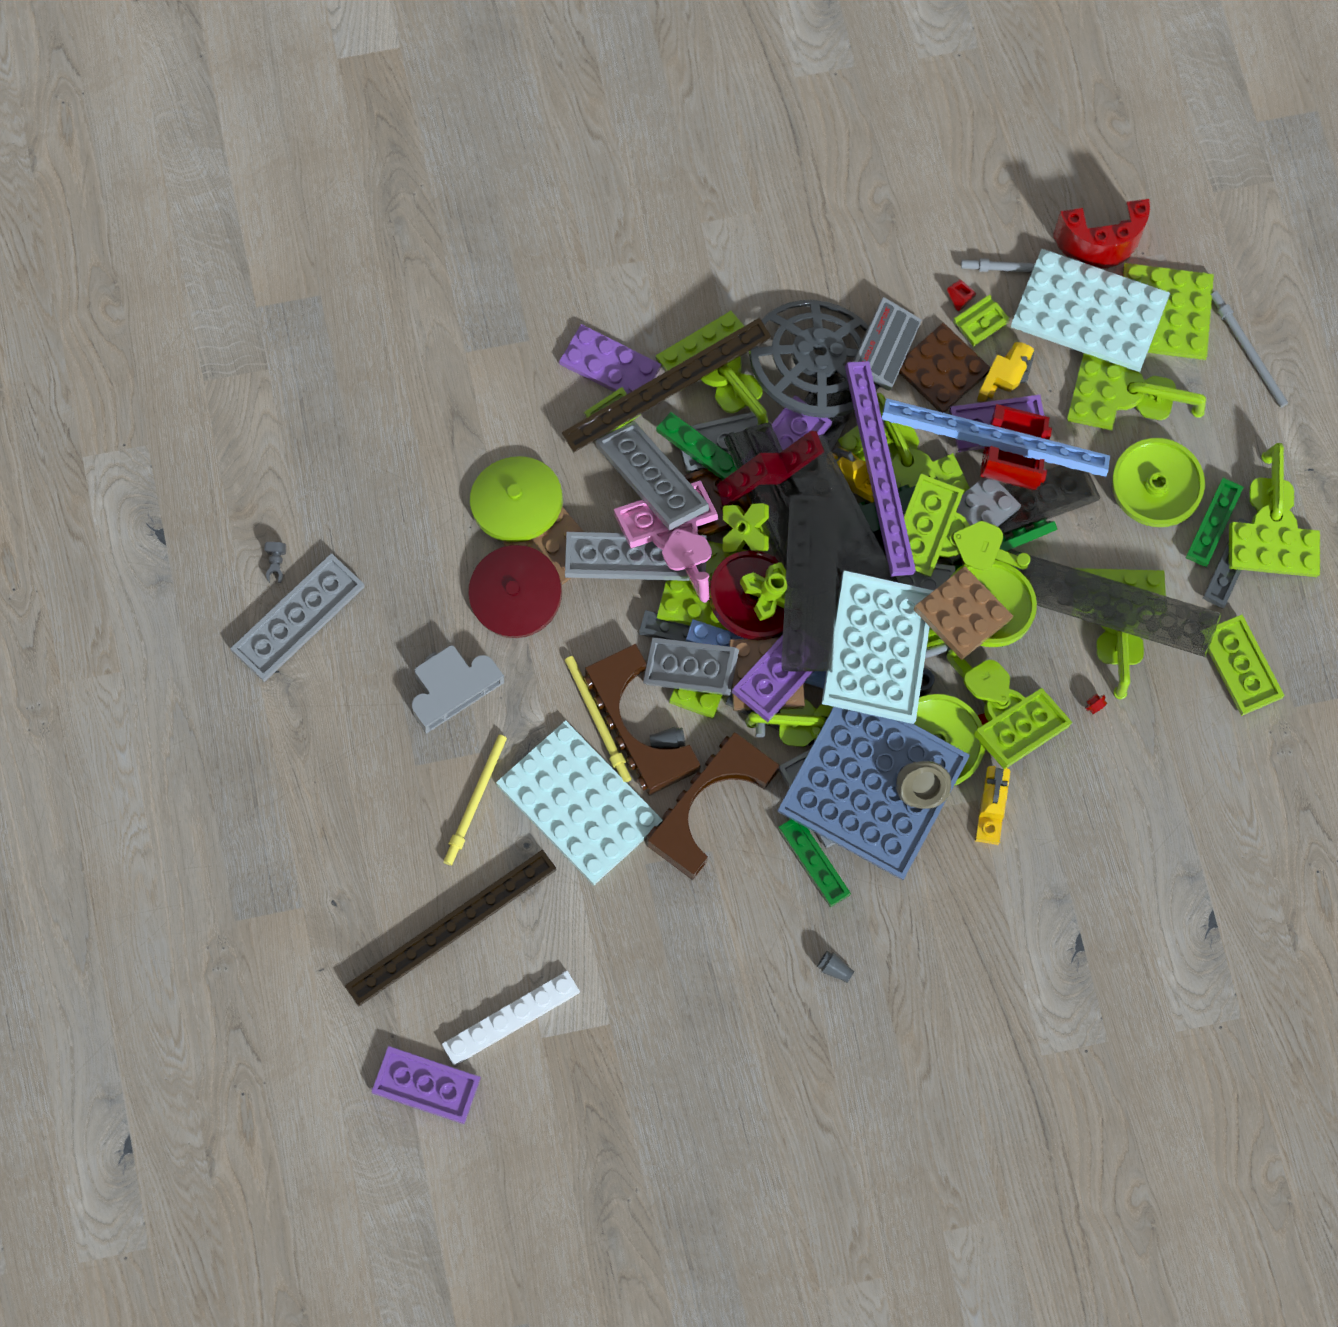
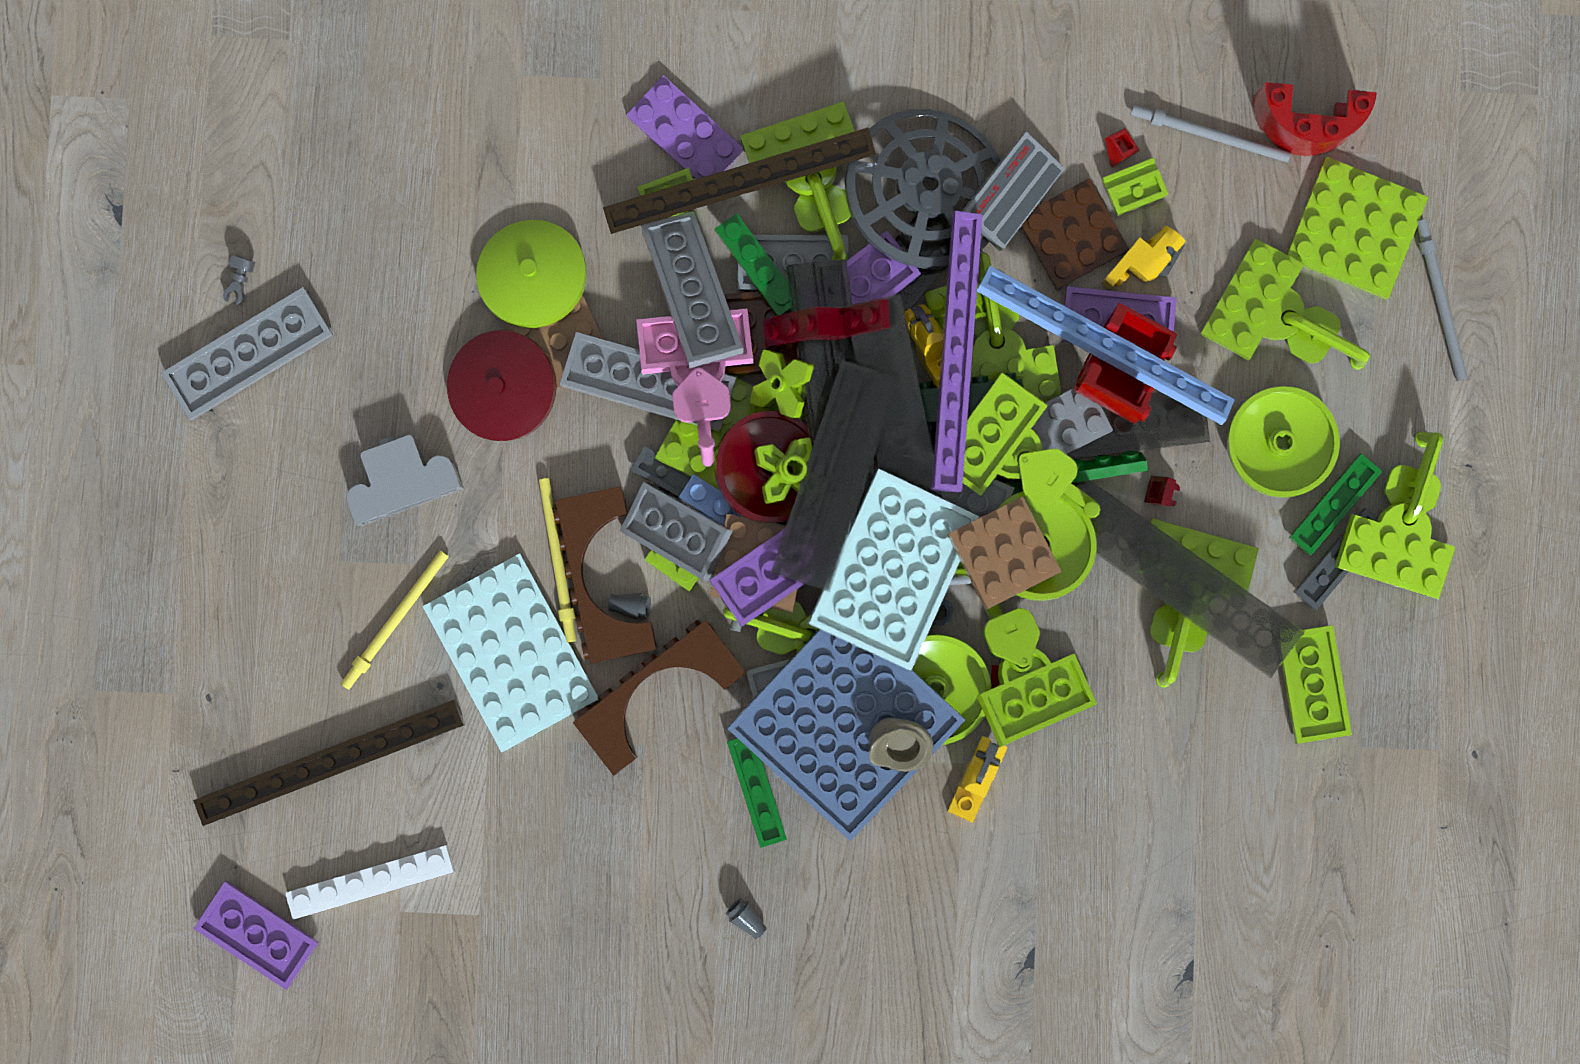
camera: 20 degrees right, 15 degrees up
(1072, 545) = (1161, 490): none -> dark red tile
(1090, 310) = (1267, 208): light aqua plate -> none
(1096, 703) = (1131, 688): red plate -> none

